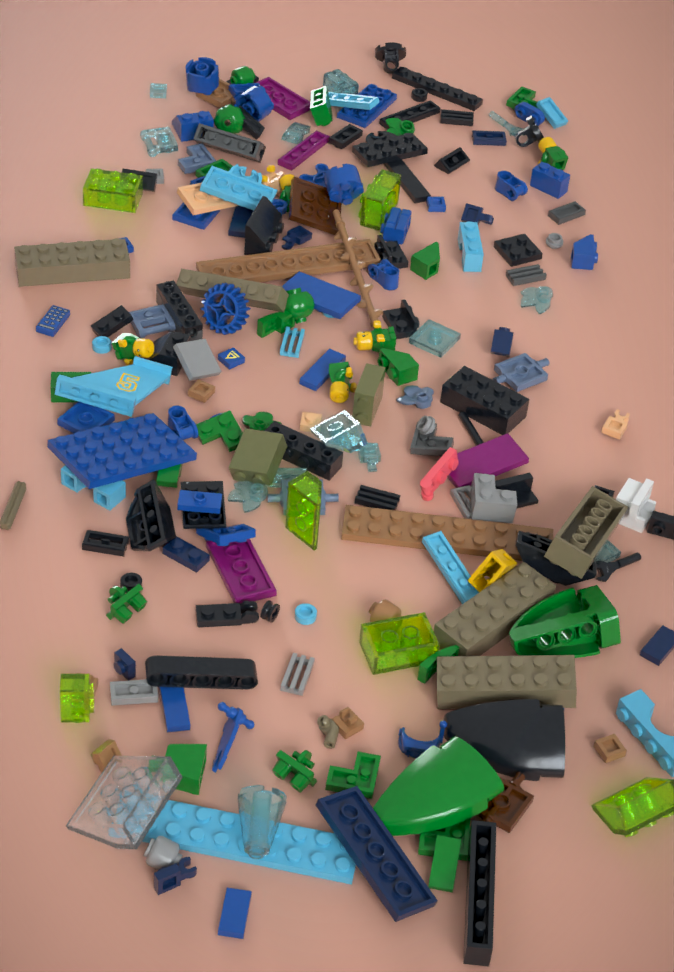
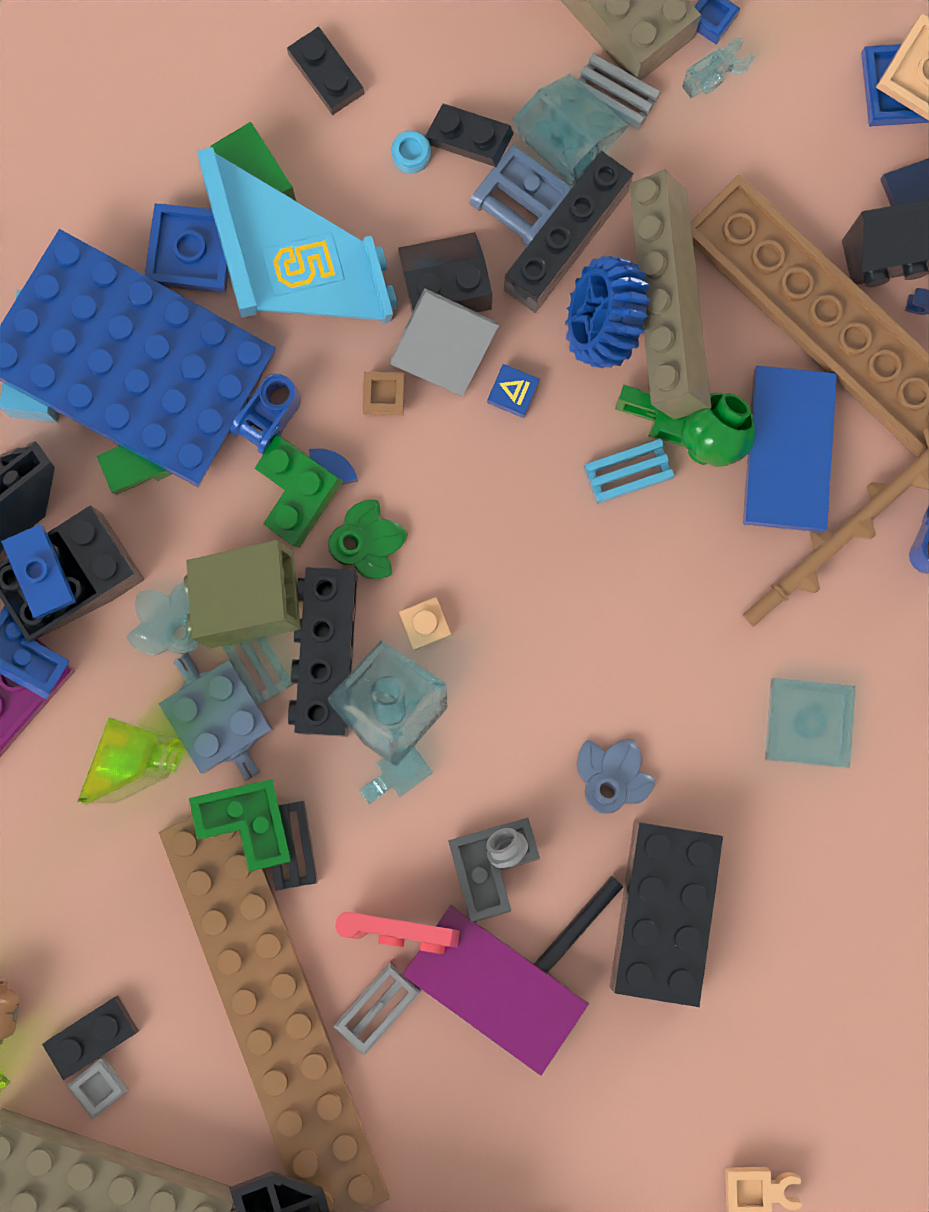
camera: 65 degrees right, 40 degrees up
(42, 353) = (325, 70): none -> black plate
(53, 321) = (421, 32): blue tile -> none
(129, 281) = (625, 80): none -> light grey tile
(129, 346) = (415, 202): piece -> none
(137, 295) = (567, 126): none -> clear light blue slope
(147, 251) = (709, 71): none -> clear light blue plate
(319, 371) = (584, 567): blue tile -> none
(340, 374) = (555, 619): piece -> none
(353, 494) = (253, 813): none -> green plate
(368, 394) = (530, 698): olive brick -> none
(376, 339) = (723, 626): piece -> none
(399, 366) = (671, 704): green slope -> none
(402, 320) = (816, 636): black bracket -> none
(419, 595) = (90, 1037): none -> black plate
(443, 602) = (98, 1087): none -> light grey tile
(450, 565) = (176, 1067): medium azure tile -> none
(489, 502) = (368, 1056): light grey brick -> none
(494, 566) = (189, 1157): yellow torso -> none
(502, 342) = (867, 863): dark blue slope -> none
(521, 372) = (804, 938): sand blue plate -> none
(522, 485) = (444, 1085): black panel -> none

